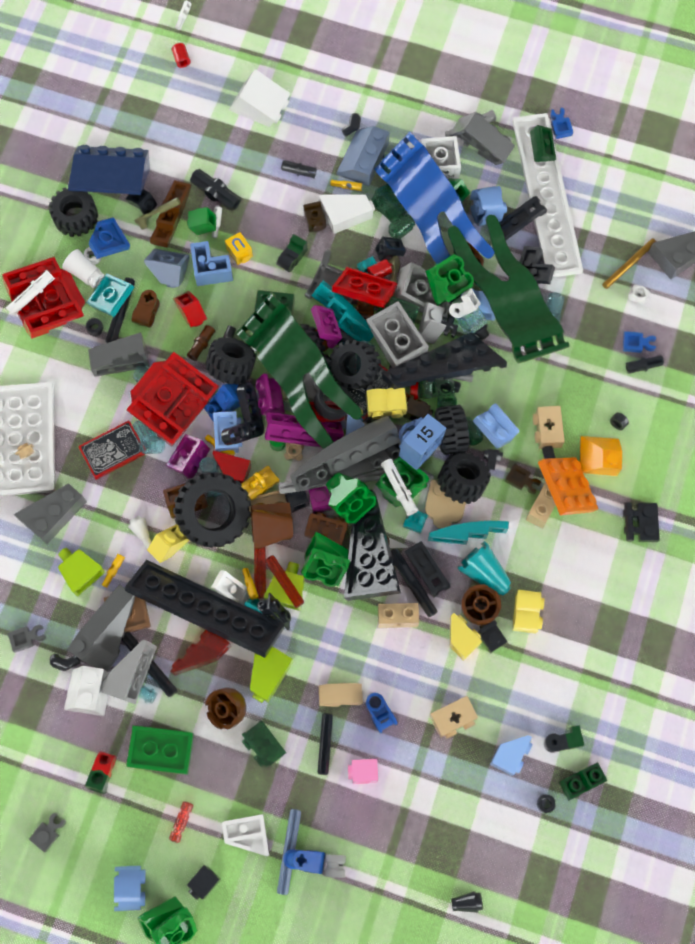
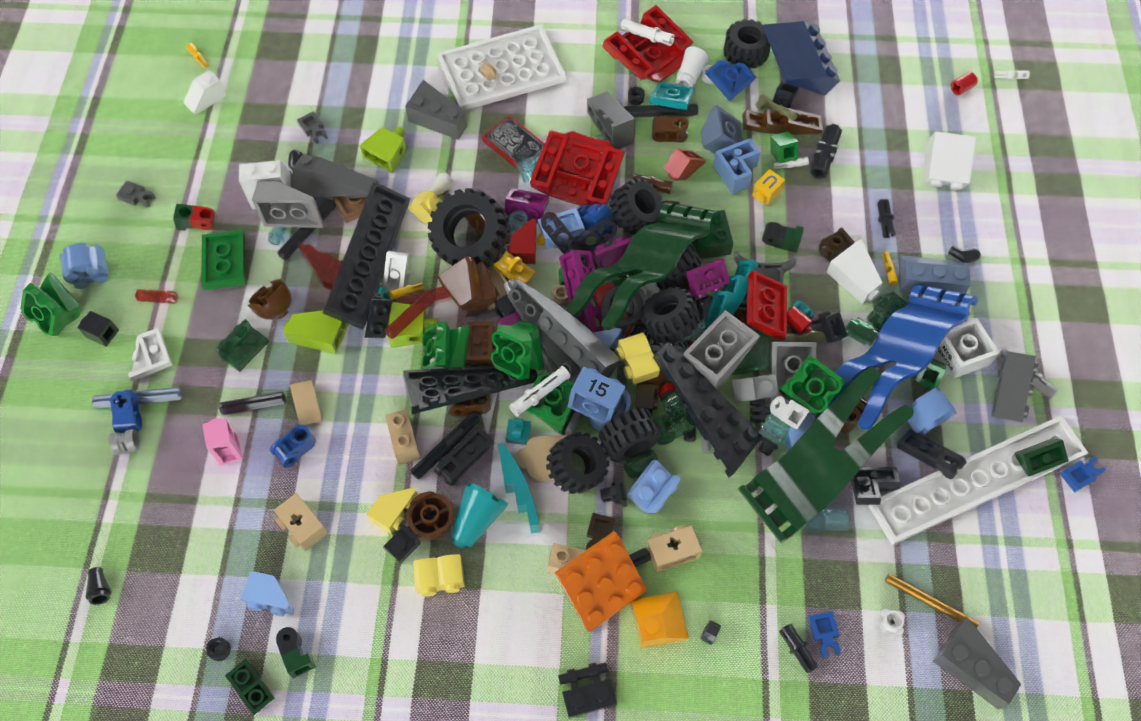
camera: 75 degrees right, 10 degrees down
(113, 570) = (401, 177): yellow pin -> none

